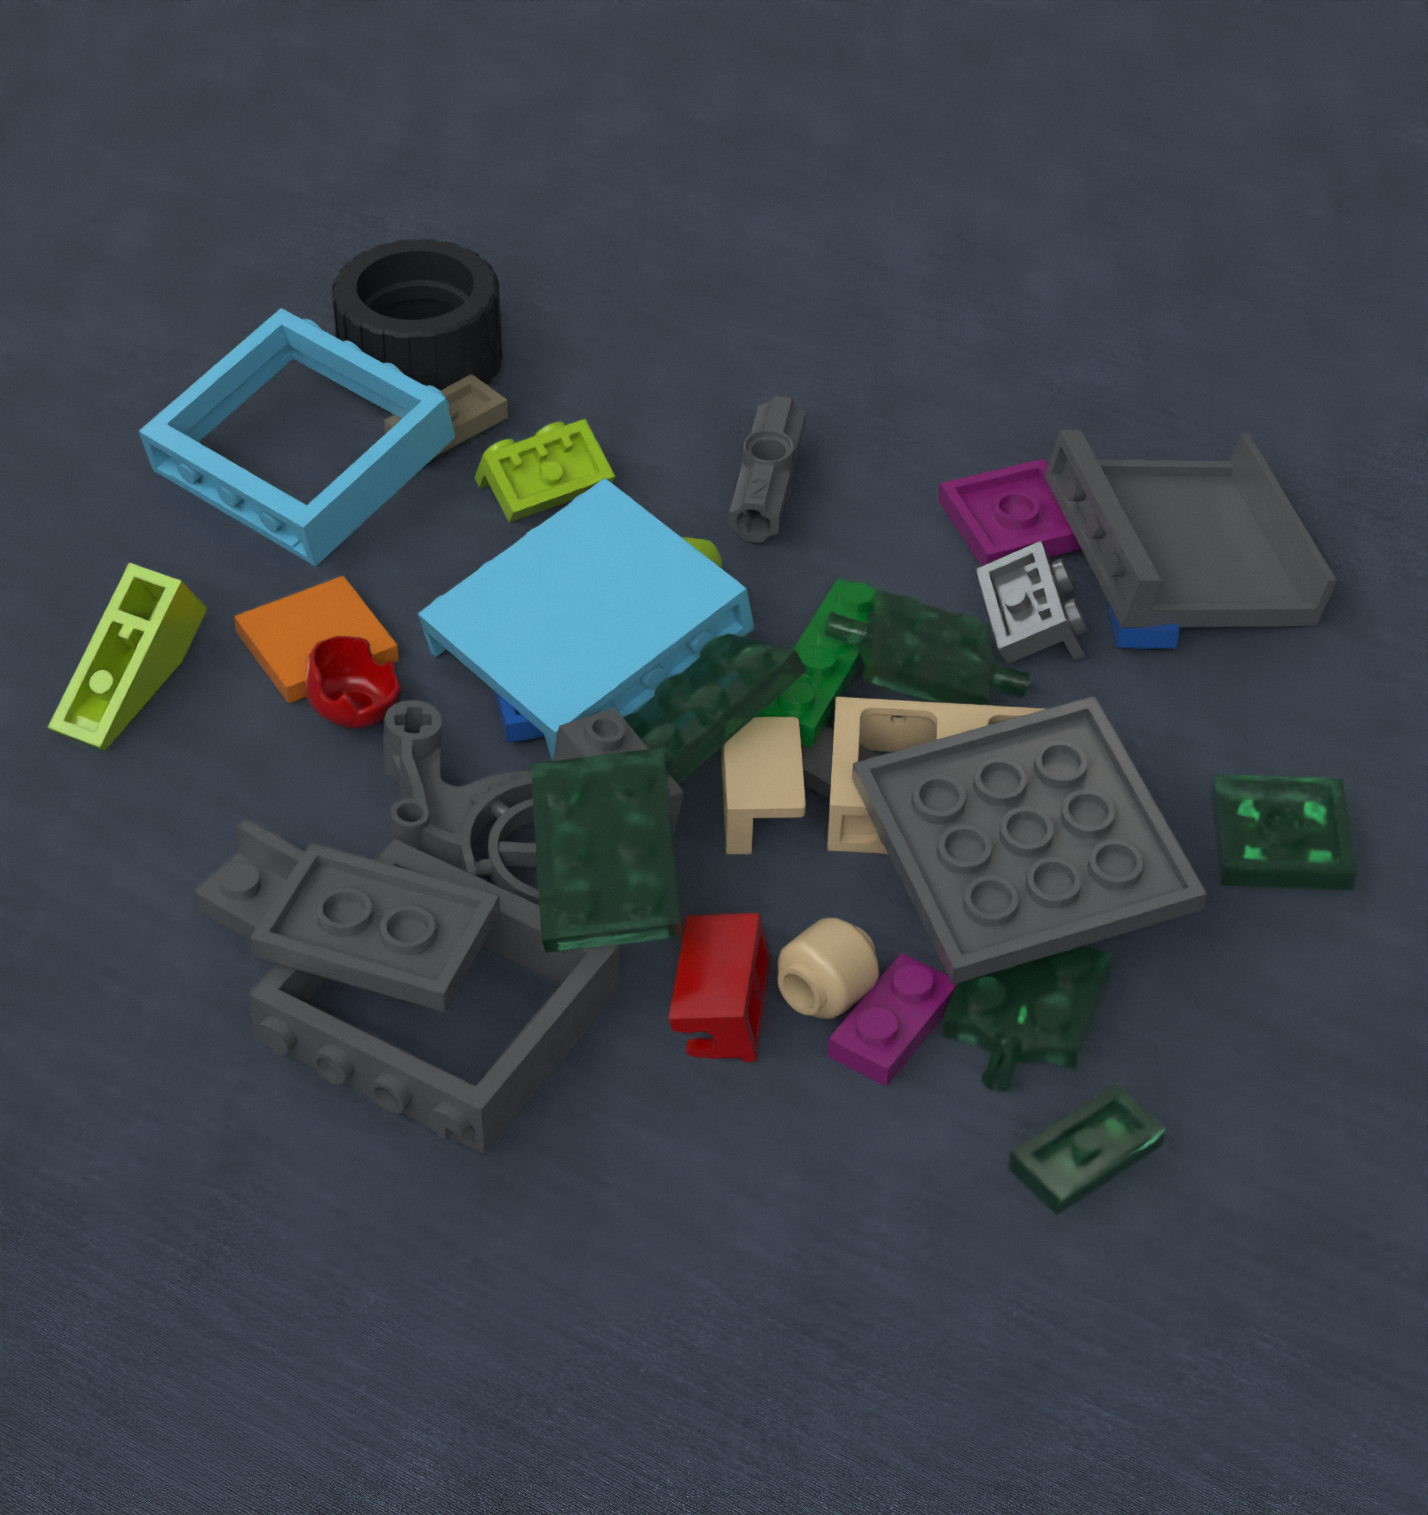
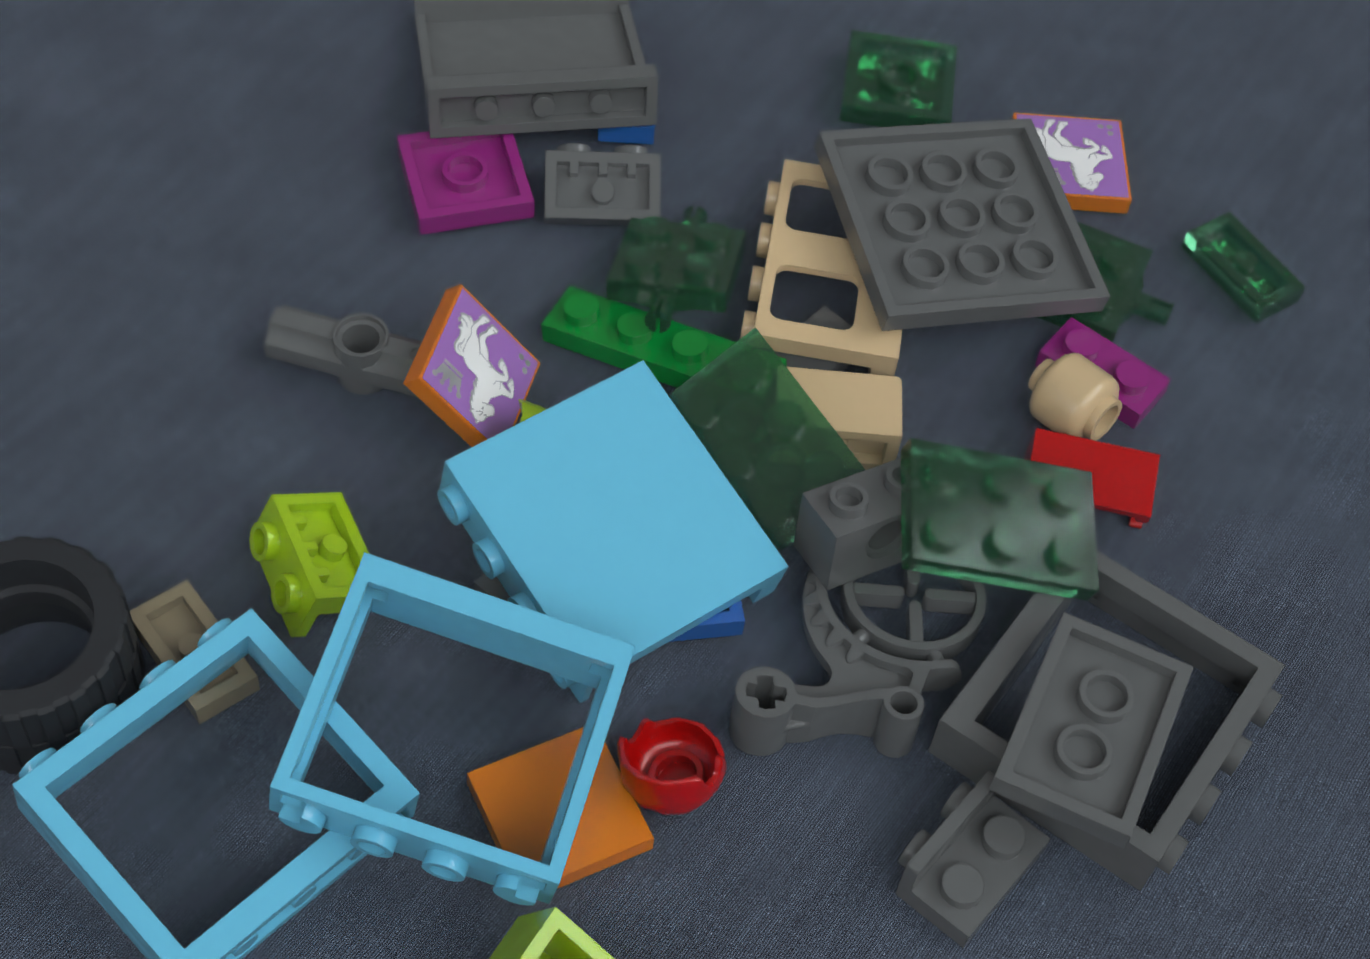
camera: 90 degrees left, 10 degrees up
(344, 433) = (484, 624): none -> medium azure window
(753, 518) = (471, 369): none -> tile
(1218, 996) = (1087, 160): none -> tile

